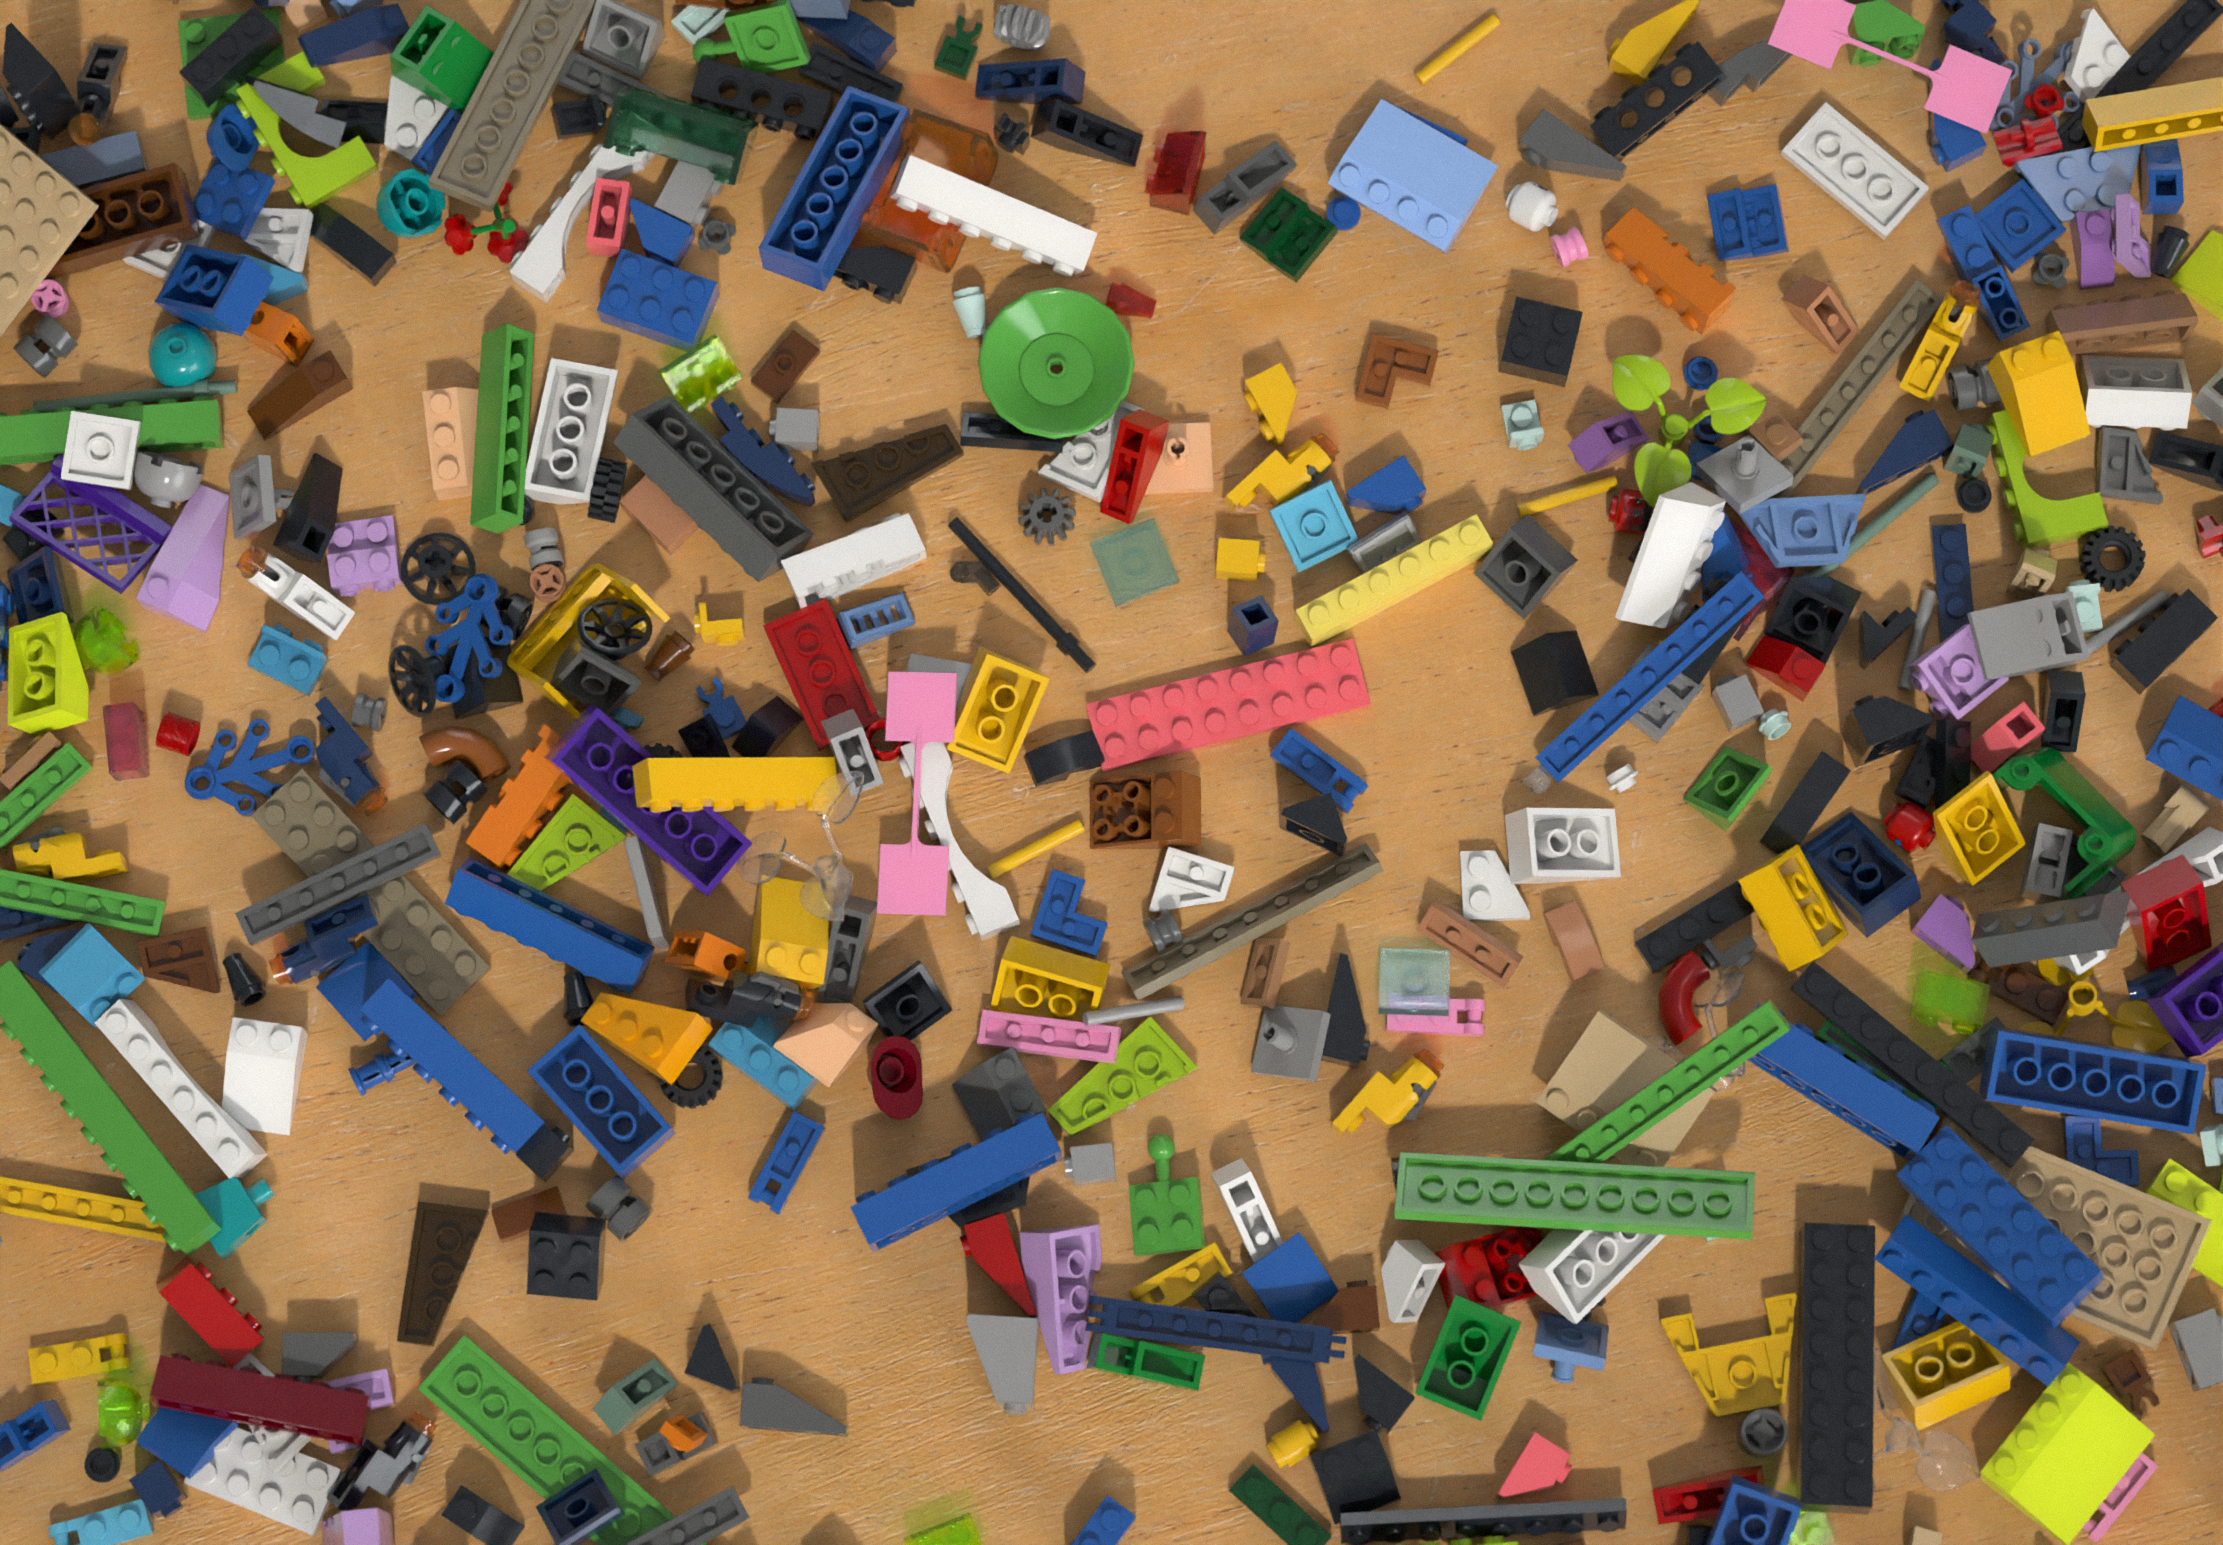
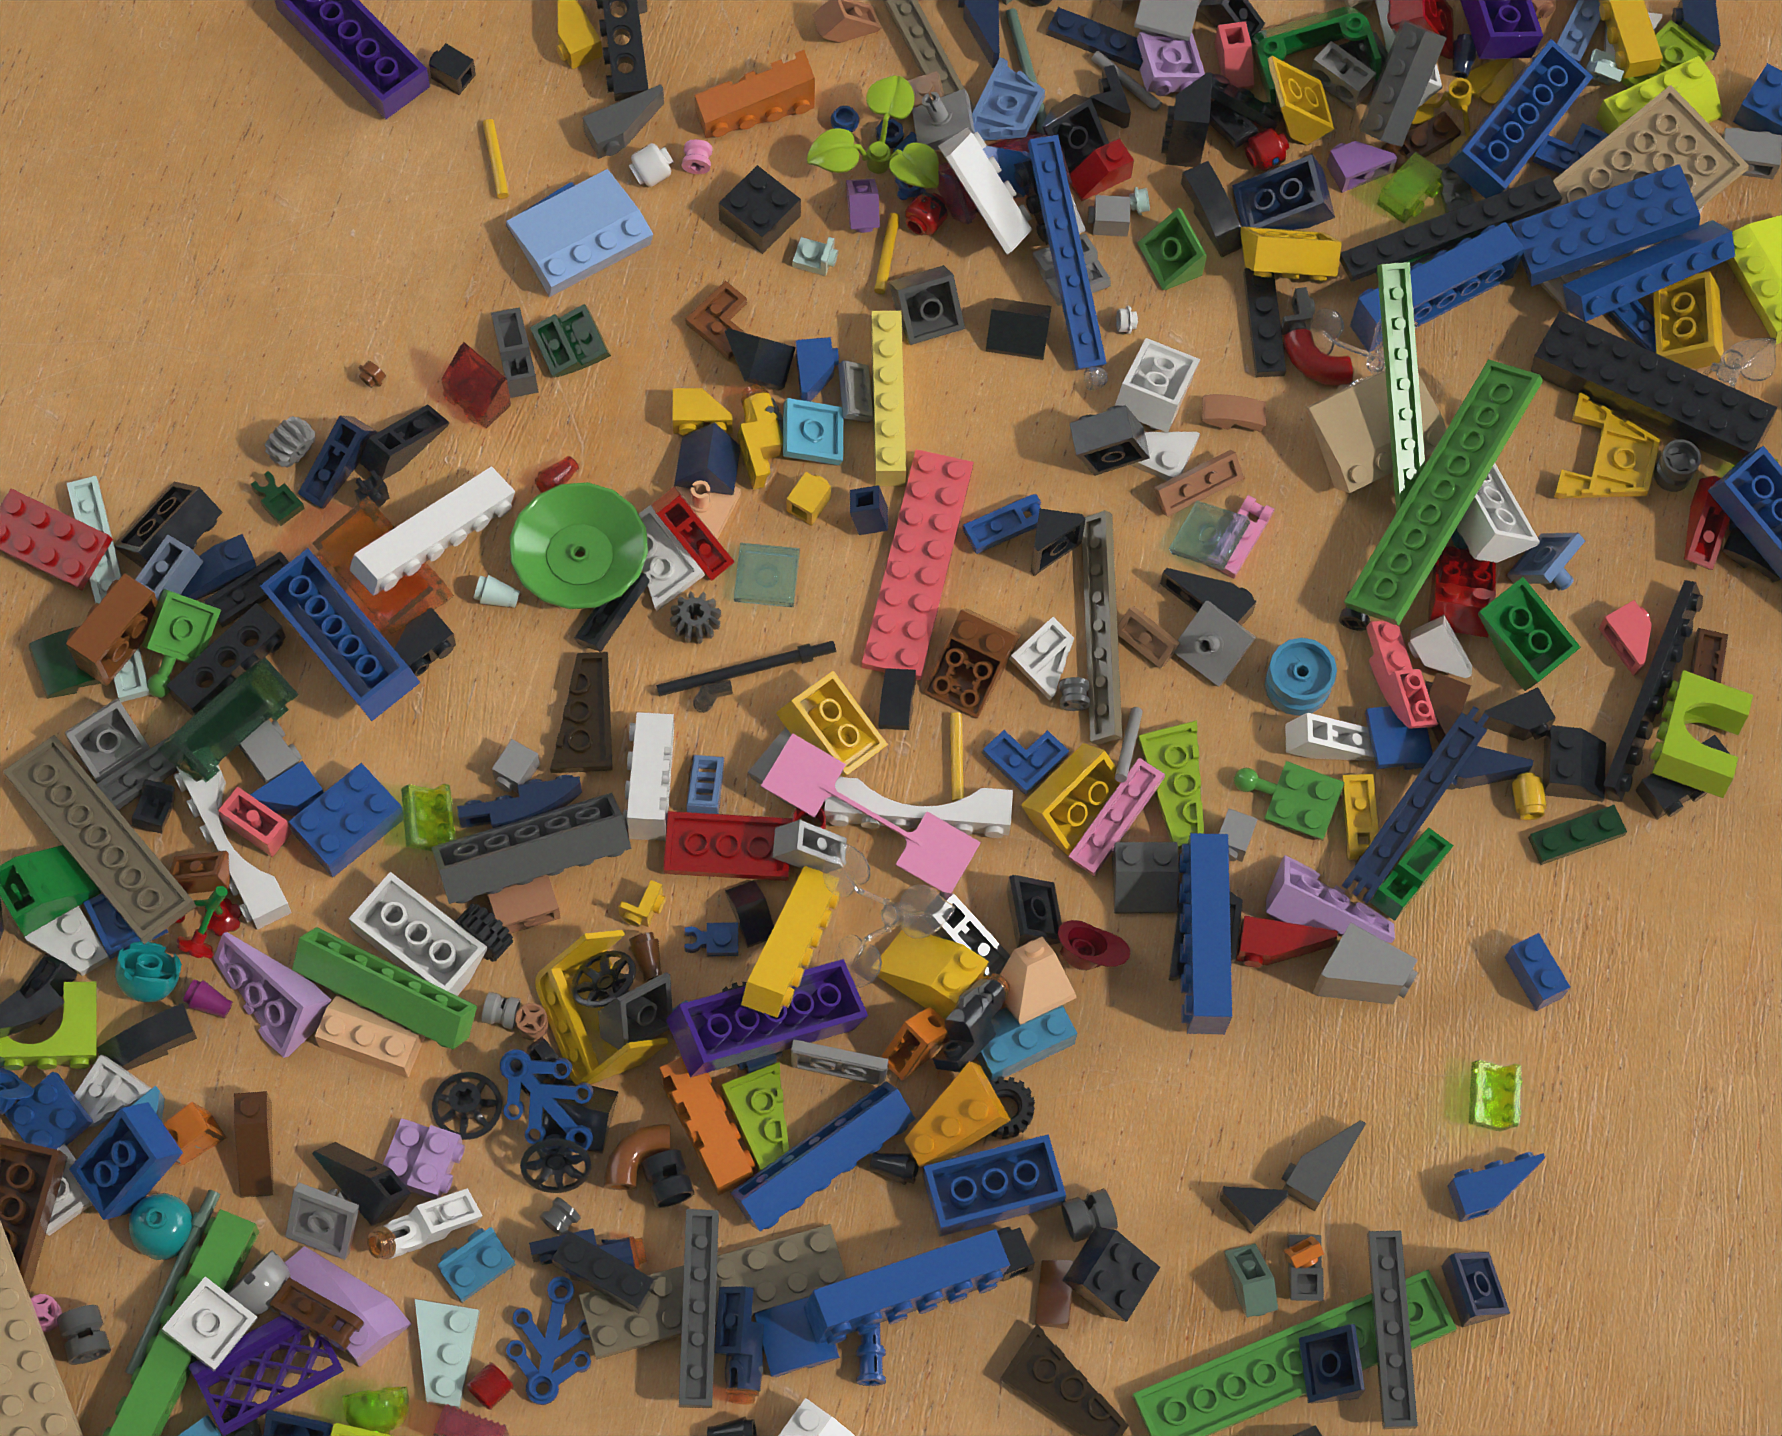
camera: 70 degrees left, 10 degrees down
(157, 539) = (316, 1313): none -> reddish brown plate
(195, 676) = (446, 1349): none -> light aqua wing
(324, 778) = (603, 1272): none -> black brick
(416, 273) = (206, 999): none -> magenta cone
(452, 341) = (279, 998): none -> lavender wedge
(534, 196) = (201, 871): none -> dark orange slope
(704, 738) = (733, 962): black slope -> none
(714, 227) = (314, 744): dark grey plate -> none
(785, 366) = (457, 753): reddish brown plate -> none
(787, 1161) = (1115, 1066): blue plate -> none
(1143, 63) = (371, 374): none -> dark orange plate
(1220, 1297) = (1388, 791): black plate -> none
(1223, 441) = (709, 457): none -> dark blue slope
(1293, 1168) = (1300, 676): none -> dark azure wheel
(1343, 213) = (577, 294): blue plate -> none
(1349, 1252) = (1397, 679): none -> coral slope
(1364, 430) = (761, 359): none -> black slope
(1395, 1098) = (1291, 592): yellow plate -> none
(1458, 826) = (1109, 440): none -> black brick
(1748, 223) = (748, 34): blue slope -> none
(2127, 1377) = (1746, 210): reddish brown plate -> none

